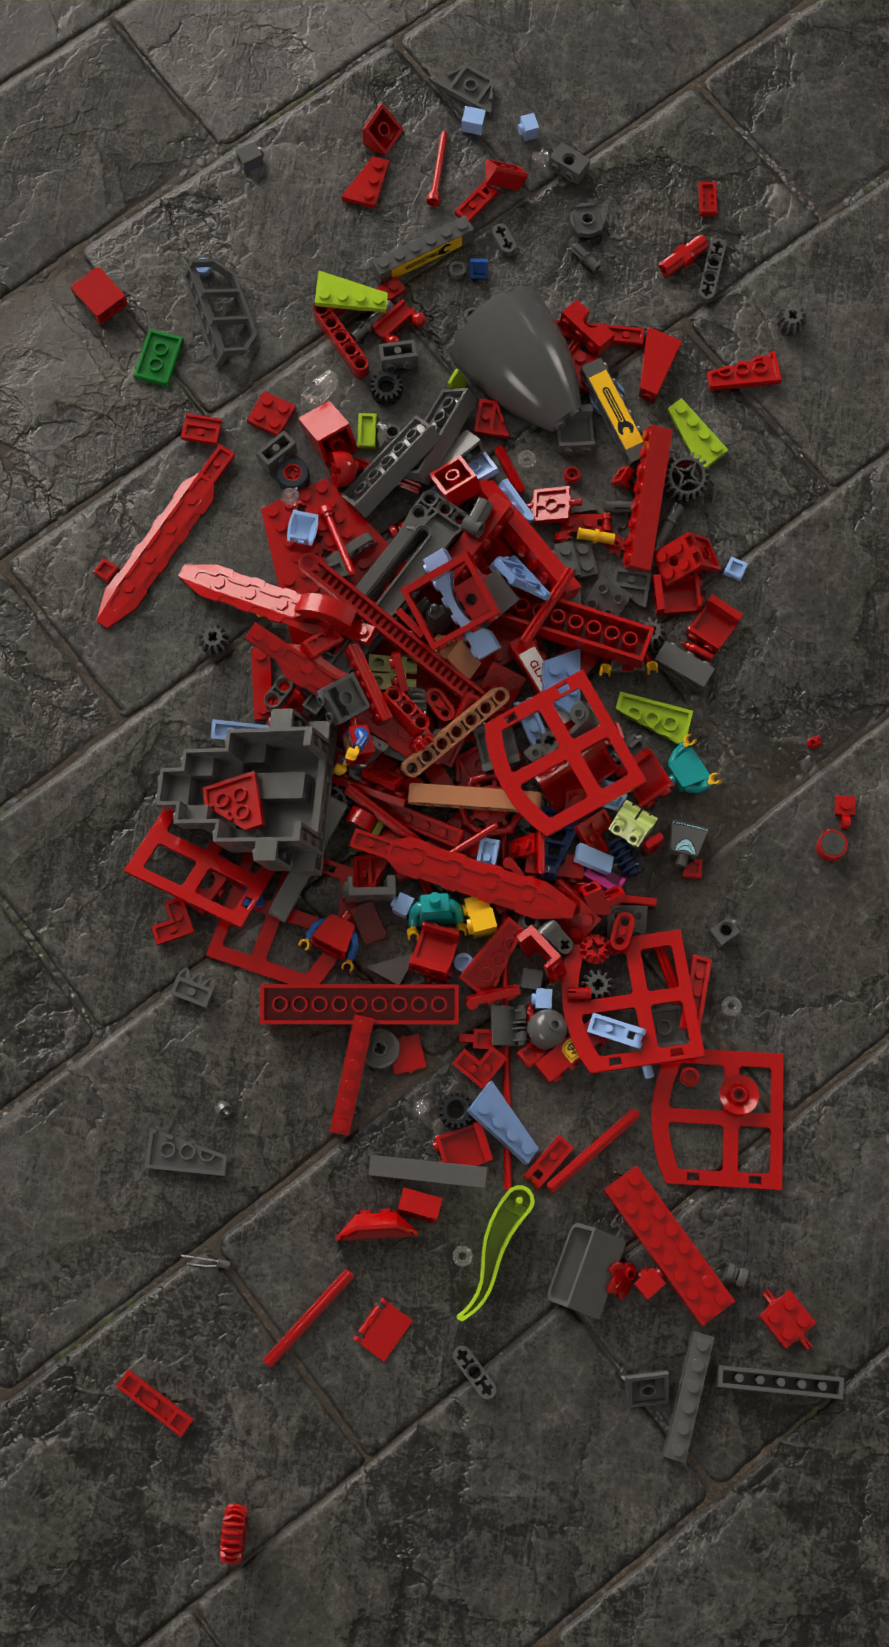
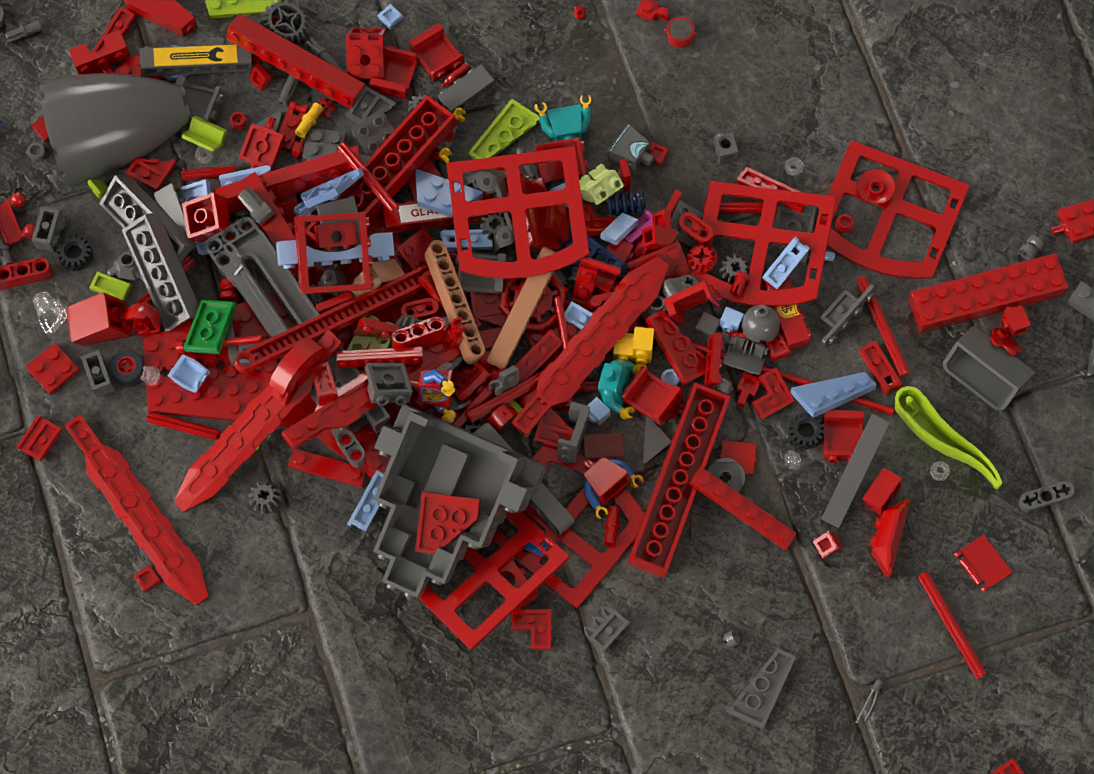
camera: 65 degrees left, 5 degrees down
(257, 544) = (184, 426): none -> red axle
(294, 958) = (611, 526): none -> red pin
(350, 1170) = (827, 544): none -> red slope
(351, 527) = (210, 326): none -> green tile
(395, 808) = (506, 380): none -> dark grey plate
(472, 1017) = (725, 386): none -> clear plate
(544, 451) = (205, 134): none -> lime panel
(592, 1104) = (841, 312): none -> dark grey bracket

